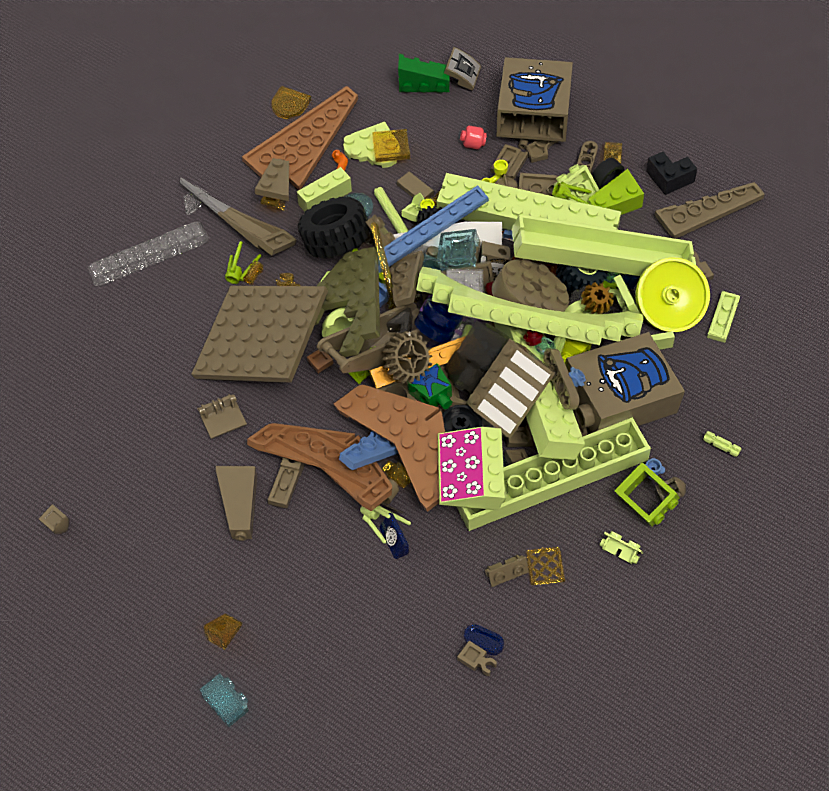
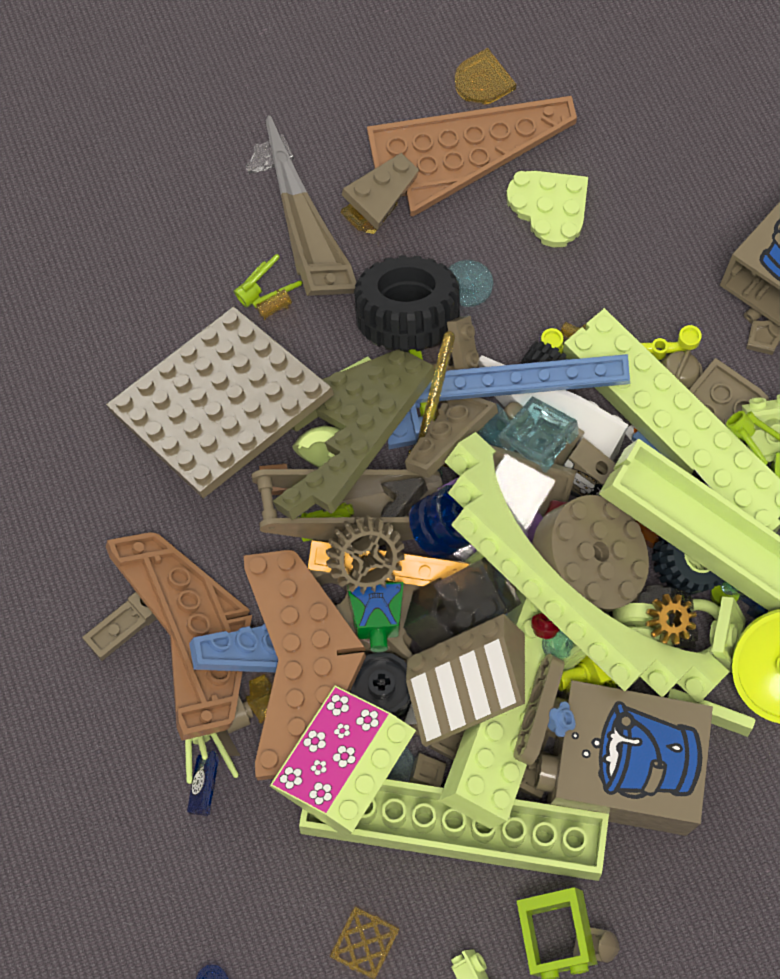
camera: 30 degrees right, 10 degrees up
(147, 253) = (162, 201): clear beam -> none
(221, 416) = (105, 485): dark tan hinge -> none
(238, 495) = (49, 614): dark tan slope -> none
(287, 277) = (315, 357): clear yellow bar -> none
(330, 186) = (439, 237): yellowish green brick -> none
(340, 159) = (493, 202): orange arm -> none
(390, 210) = (507, 317): yellowish green axle -> none
(391, 145) = (569, 219): clear yellow tile -> none
(412, 210) = (532, 331): yellowish green plate -> none
(413, 186) = (563, 298): dark tan tile -> none
(422, 76) = (681, 138): green wedge -> none
(463, 68) = (744, 155): slope -> none
(473, 137) = (688, 268): coral head -> none
(511, 569) = (295, 918): dark tan hinge -> none
(514, 158) = (719, 331): dark tan plate -> none
(654, 463) = (600, 889): medium blue plate -> none
(722, 443) = (712, 920): yellowish green axle -> none

